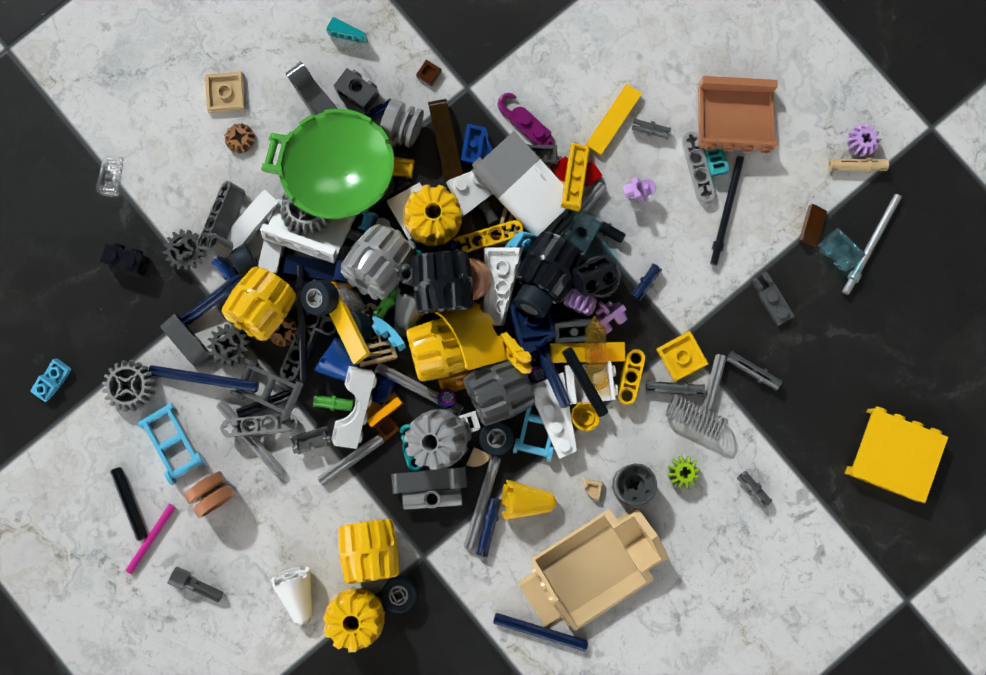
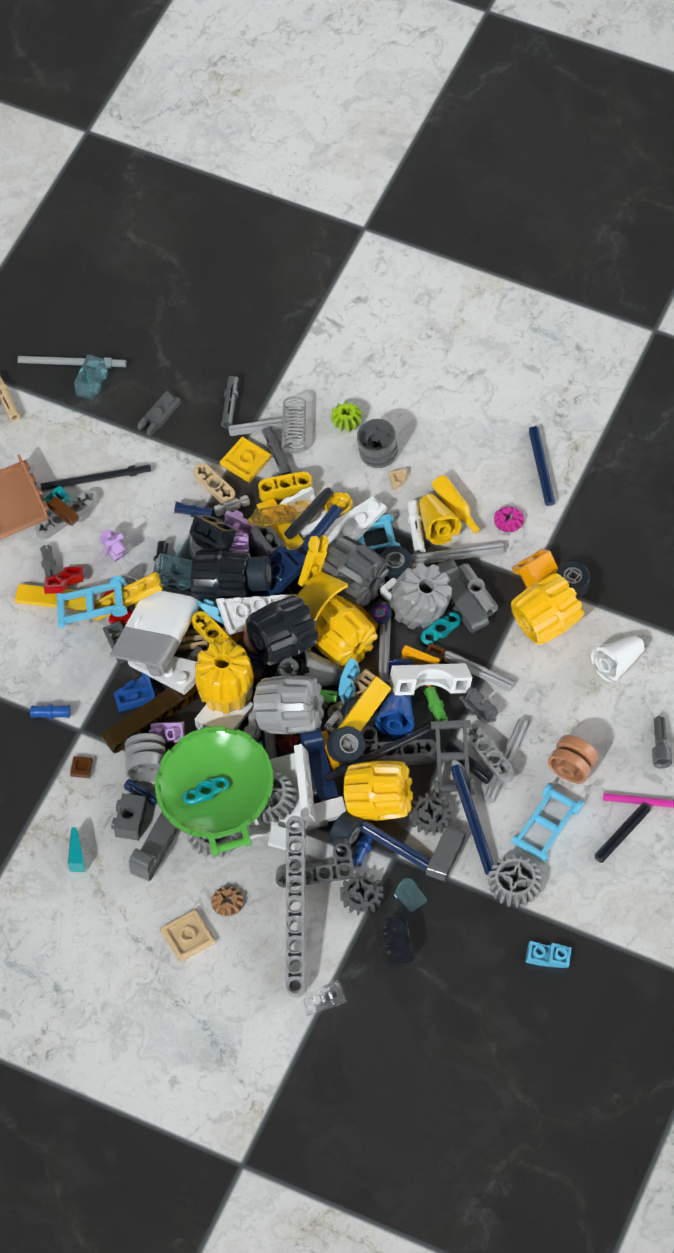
camera: 115 degrees left, 25 degrees down
(164, 172) = (295, 915): none -> light grey beam
(165, 292) = (410, 894): none -> clear light blue tile
(342, 164) = (200, 797): none -> teal piece
(347, 630) = (610, 594): yellow wheel -> none
(419, 157) = (168, 730): none -> lavender hips
(432, 567) = (536, 567): none -> light orange panel
(489, 526) = (468, 540): dark blue pin -> none
(495, 67) = (50, 711): none -> blue pin
(506, 572) = (510, 525): none -> dark pink gear
(525, 122) = (91, 665): magenta plate -> none
(529, 478) = (416, 528): none -> white pin
(537, 527) = (454, 501): none -> yellow piece
(562, 160) = (117, 610): none -> medium azure piece
(593, 569) = (464, 445): tan panel -> none
(626, 140) = (61, 581): none -> red tile
(636, 320) = (231, 505): none -> light grey axle
(682, 315) = (213, 476): none -> tan beam
(697, 160) = (63, 511): none -> reddish brown beam
(754, 489) = (332, 362): dark grey pin -> none
(813, 225) = (77, 410): reddish brown slope -> none
(898, 455) = (246, 273): yellow panel -> none

